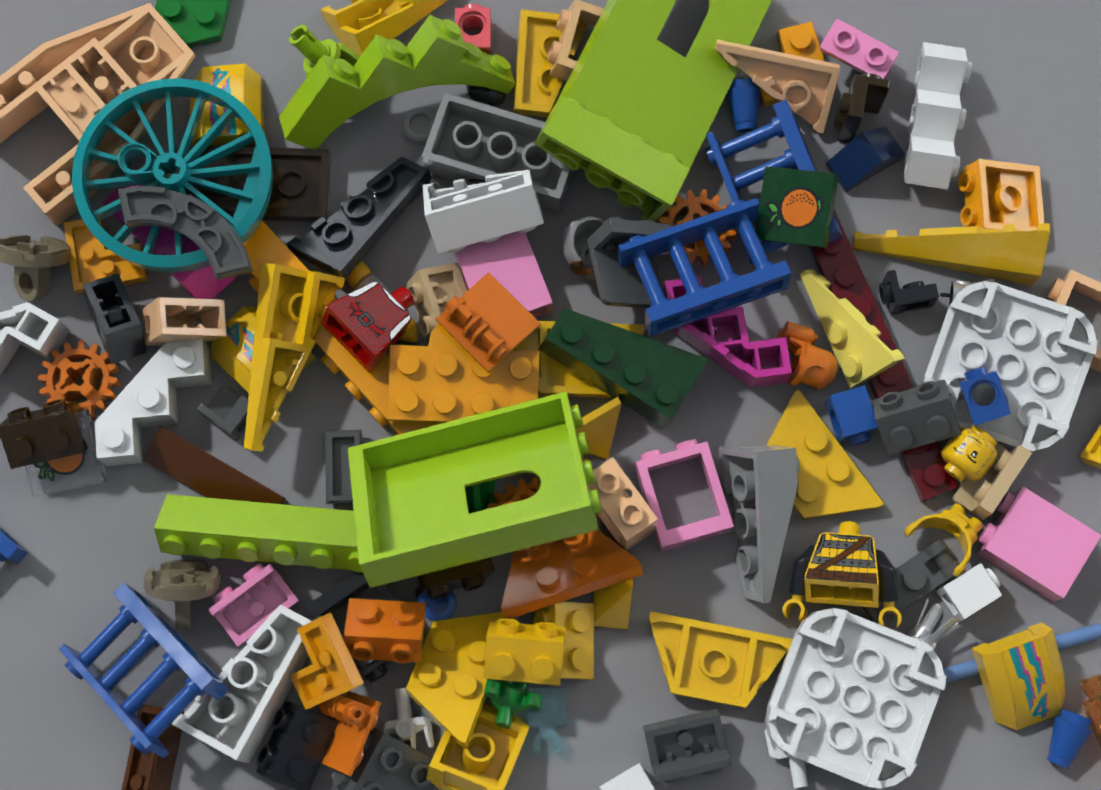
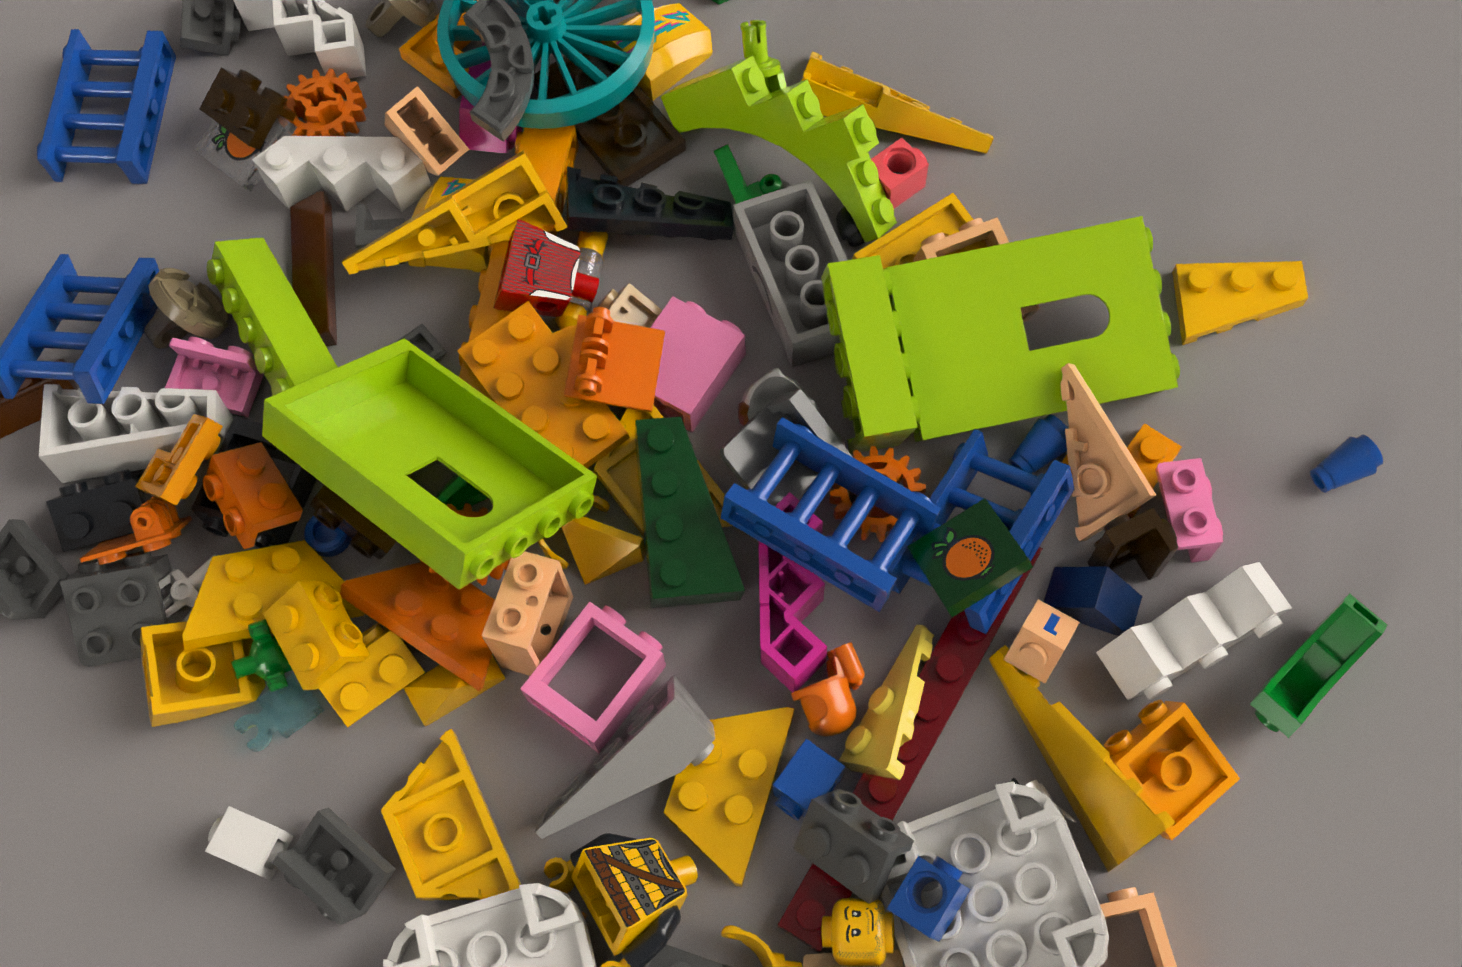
camera: 55 degrees right, 10 degrees down
(114, 318) = (387, 84): black brick -> none
(409, 144) = (736, 181): none -> green piece
(481, 210) = (721, 286): white wedge -> none
(873, 208) = (1041, 641): none -> light nougat brick
(909, 298) = (982, 750): black bracket -> none
(1012, 78) = (1317, 666): none -> green arch

